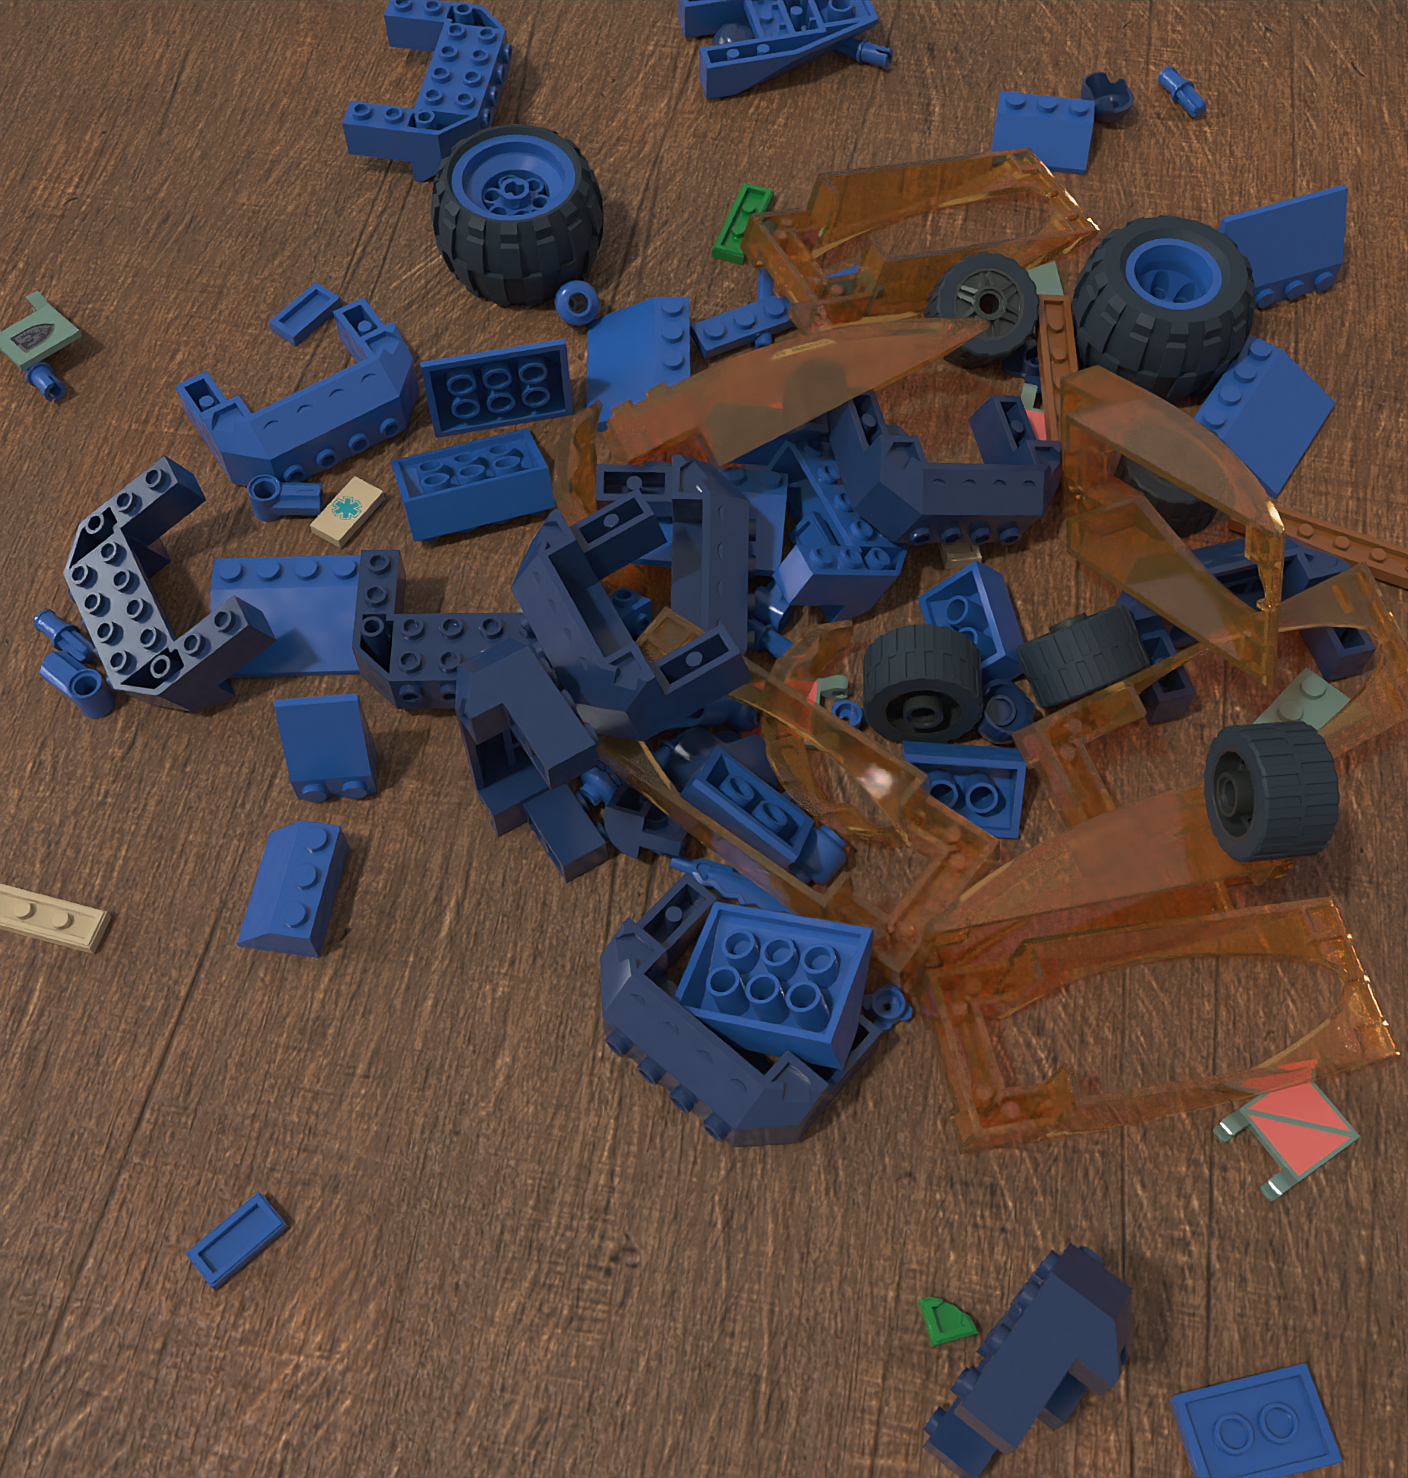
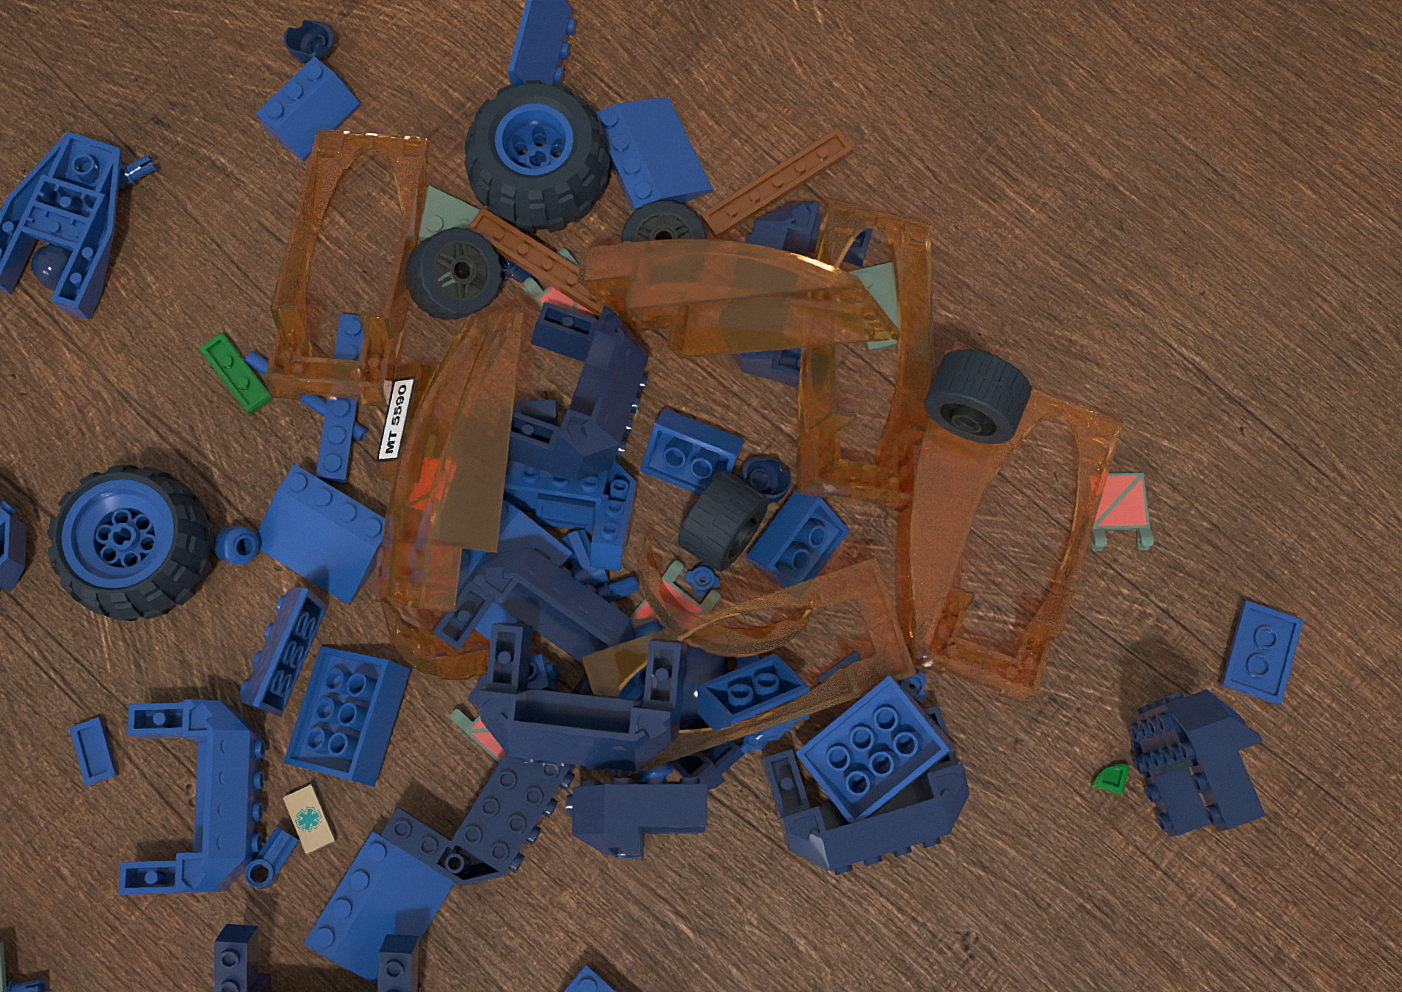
camera: 60 degrees left, 15 degrees up
(328, 747) = (524, 943): blue slope -> none
(820, 856) = (795, 657): blue head -> none
(1082, 655) = (768, 408): black wheel -> none

